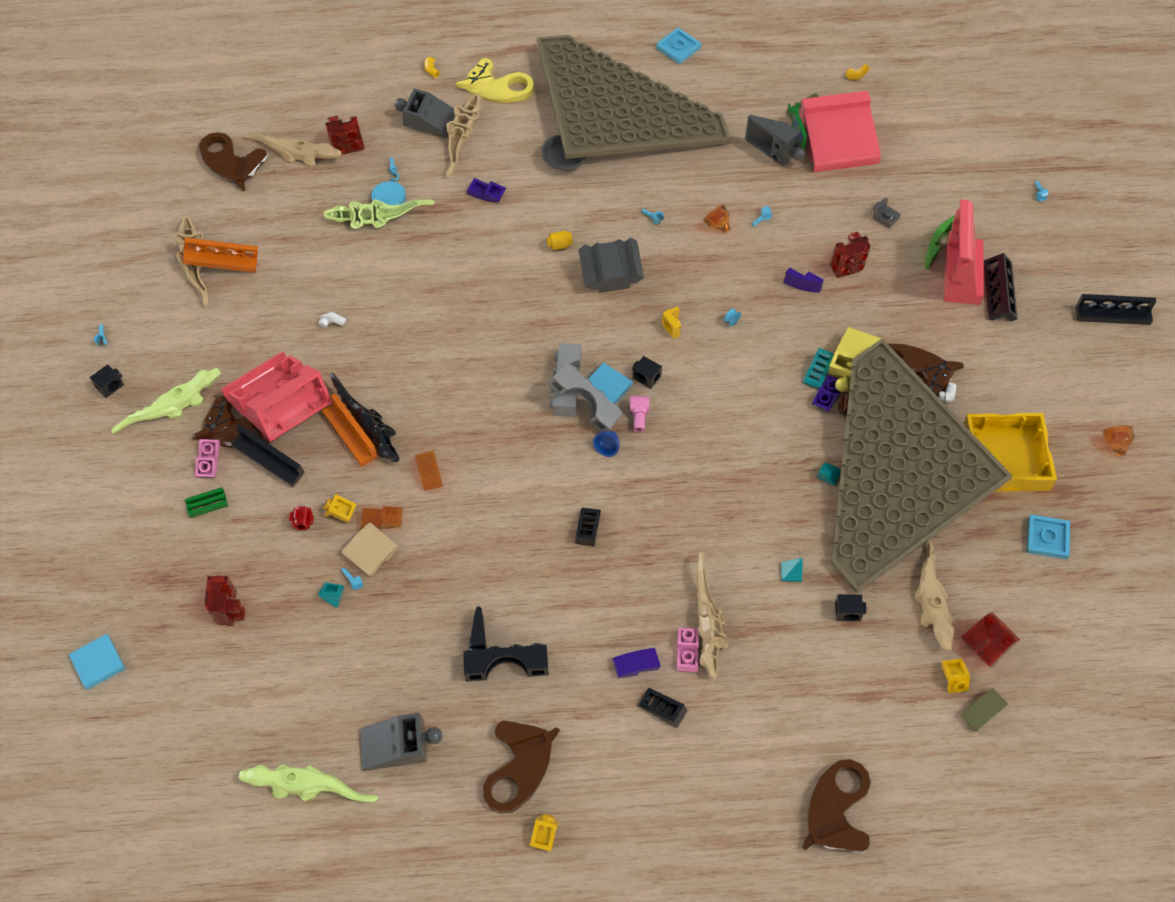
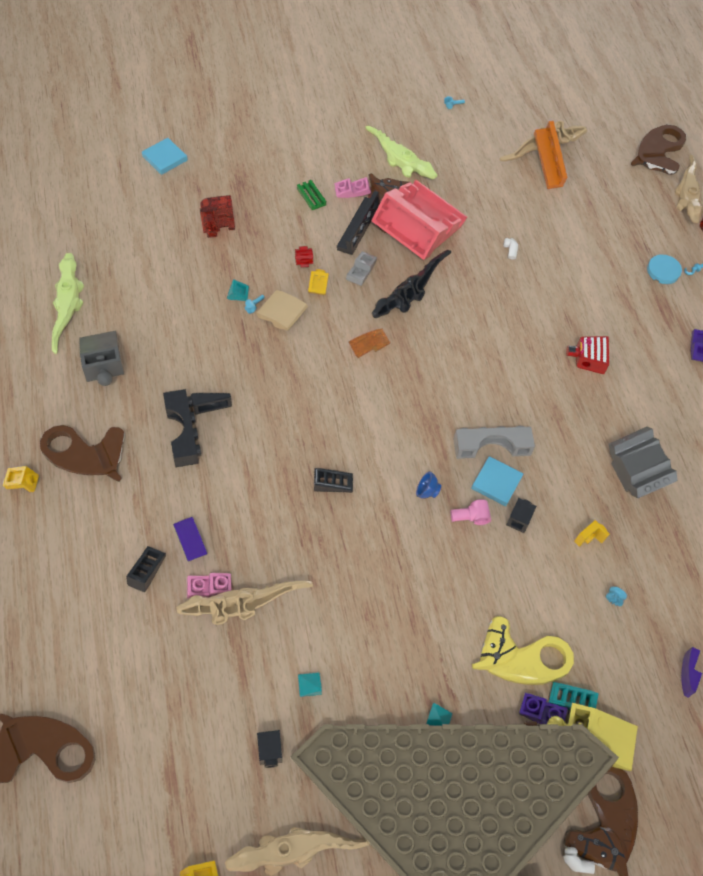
camera: 75 degrees right, 0 degrees up
(107, 380) = (409, 112): black brick -> none
(327, 465) = (362, 267): none -> light grey slope
(350, 431) = (390, 282): orange fence -> none
(372, 213) = (638, 257): yellowish green animal -> none
(383, 518) = (315, 314): clear orange slope -> none
(480, 278) = (591, 353): none -> red torso
(559, 240) = (661, 416): yellow brick -> none
(569, 380) = (459, 477): light grey arch -> none
(786, 401) = (520, 665): none -> light yellow animal

